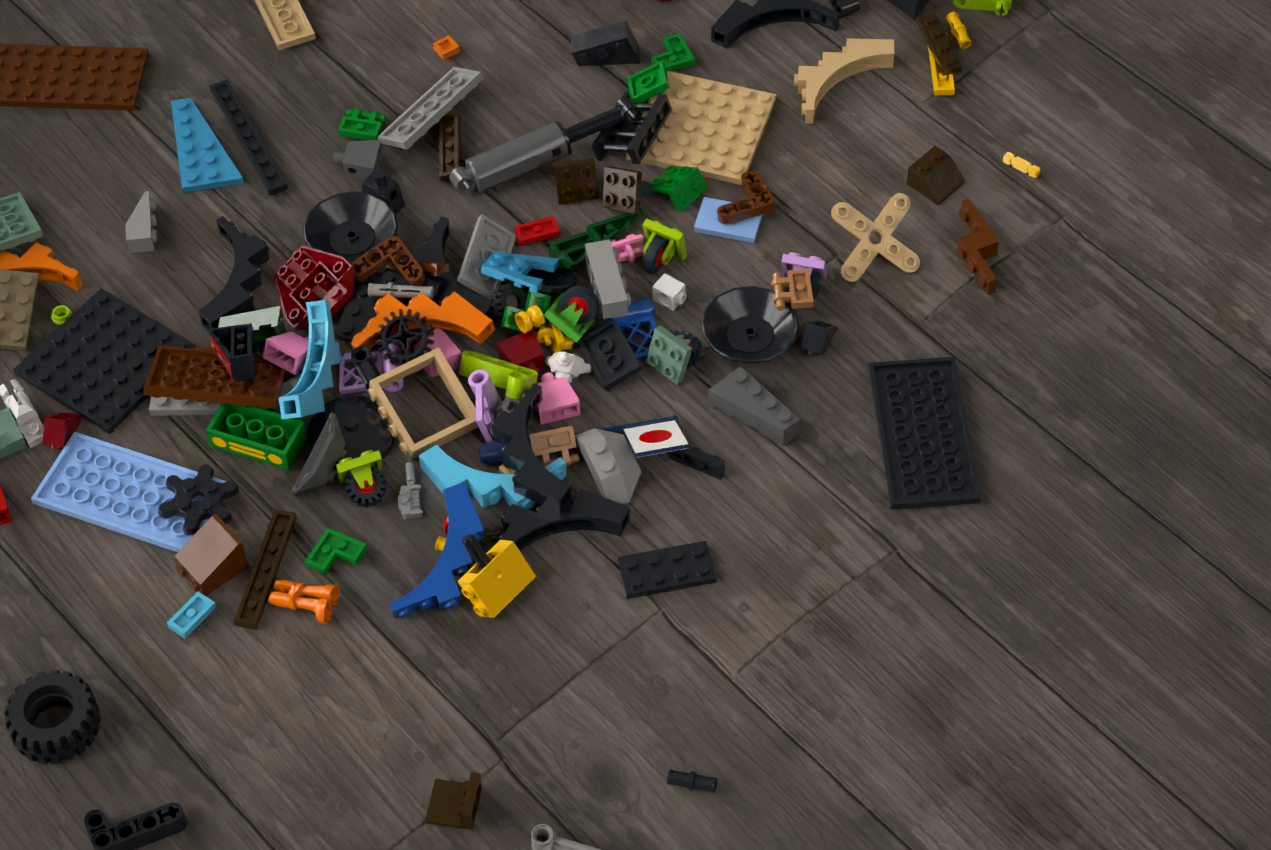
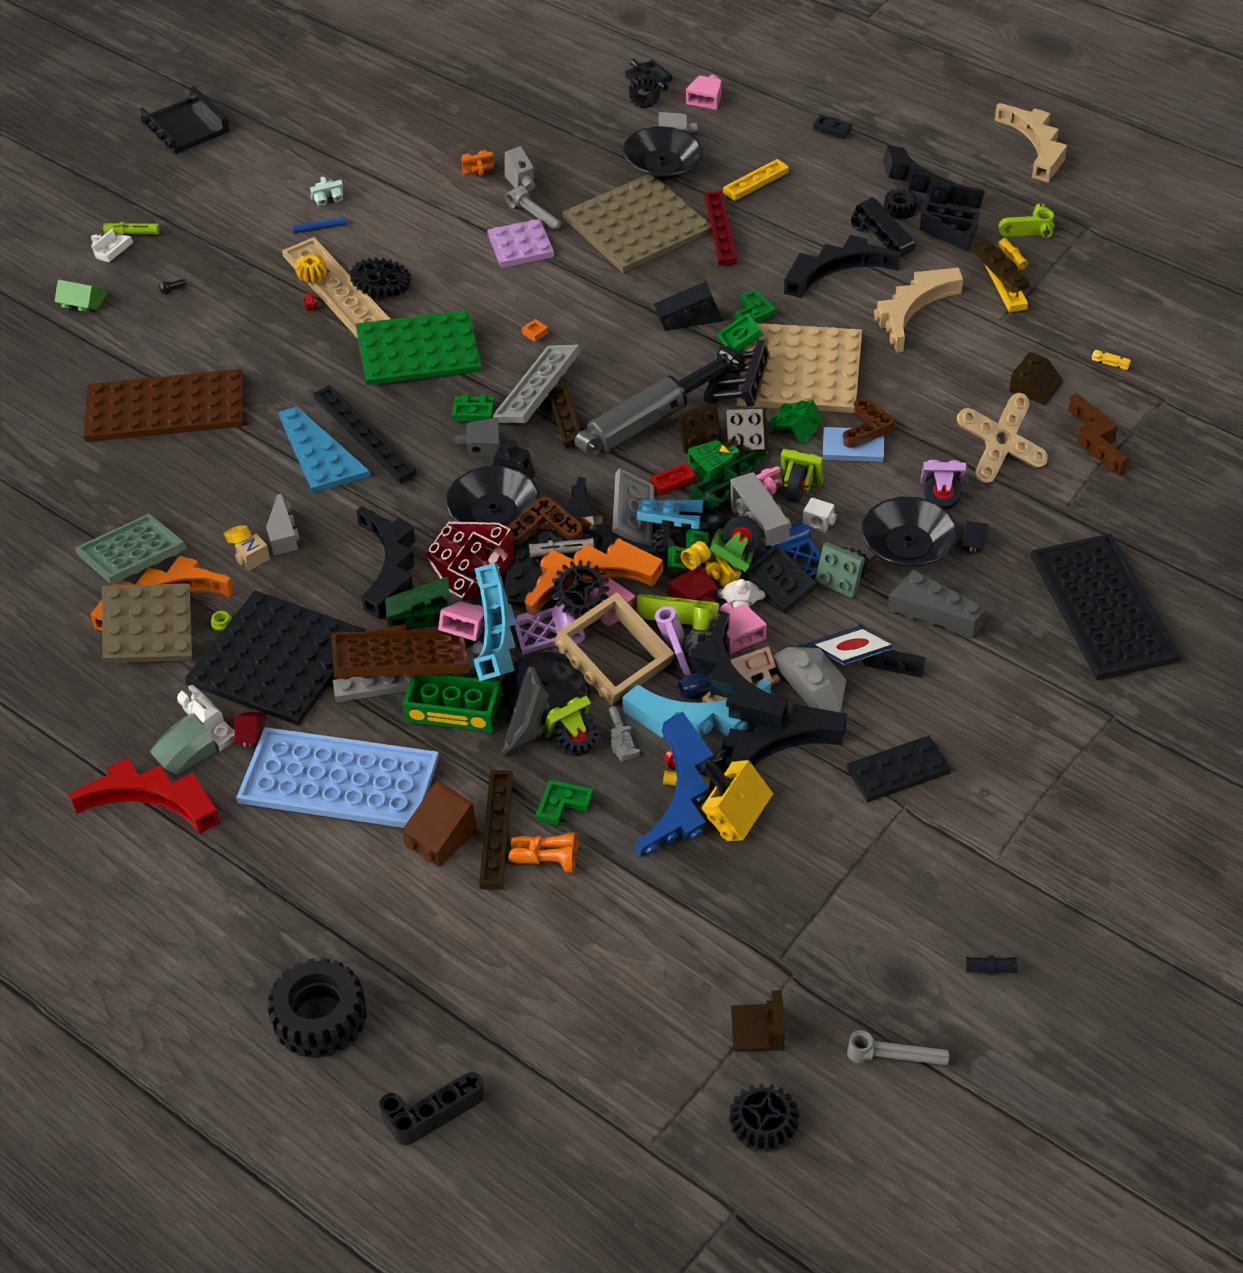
camera: 10 degrees left, 5 degrees down
(97, 227) = (237, 534): none -> yellow beam
(107, 248) = (252, 552): none -> tan brick
(191, 615) = (433, 885): medium azure plate -> none
(193, 511) = (409, 784): black plate -> none
(235, 350) = (413, 624): black wedge -> none
(324, 50) = (417, 347): none -> green plate
(364, 364) = (544, 622): black piece -> none
(580, 213) = (710, 457): none -> green torso
(799, 289) = (948, 493): medium nougat plate -> none

